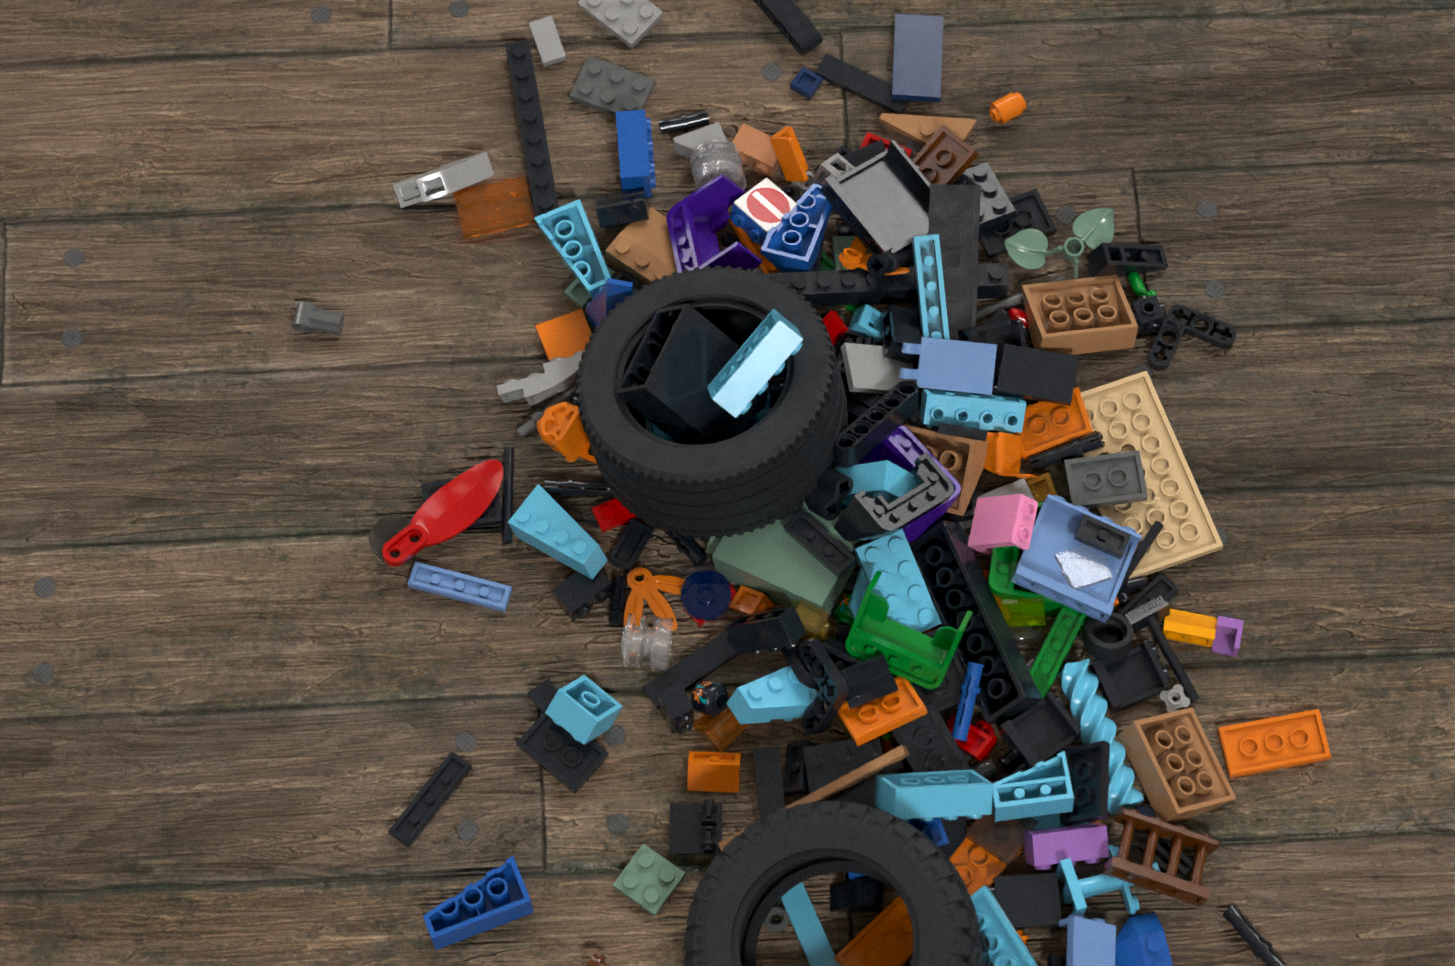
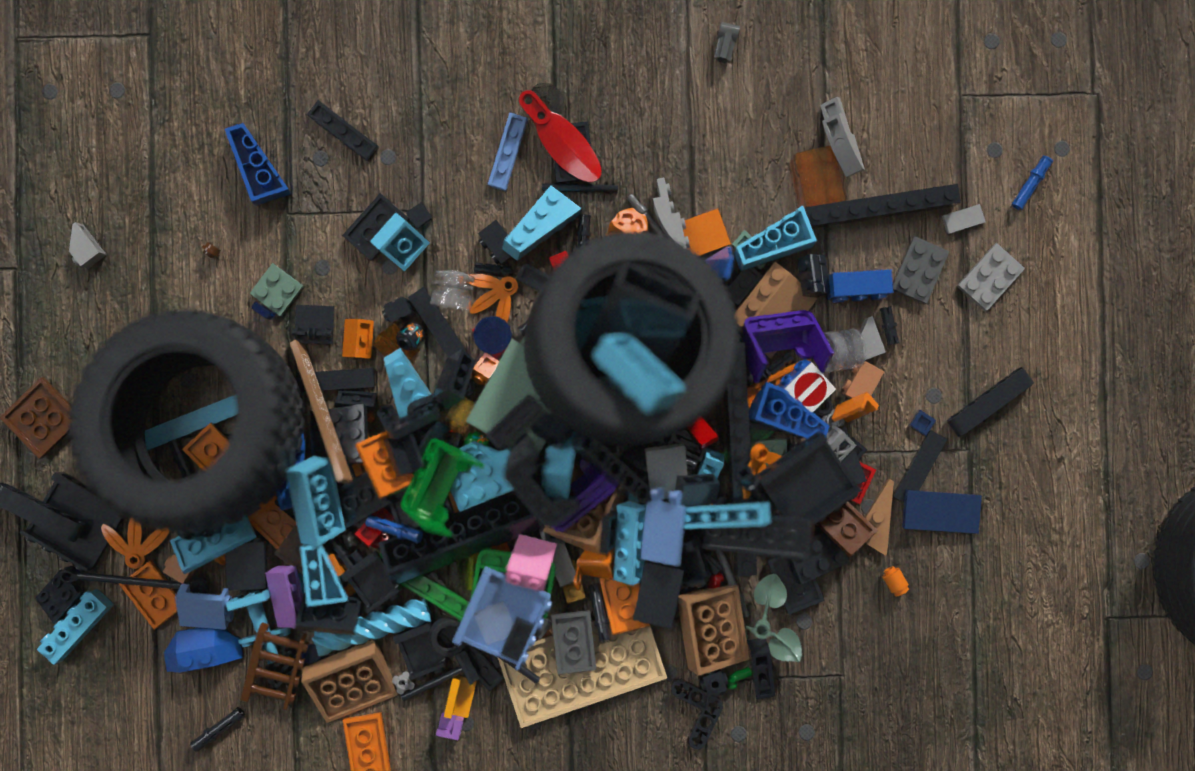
camera: 85 degrees right, 20 degrees up
(678, 893) = (263, 311): none -> clear blue tile

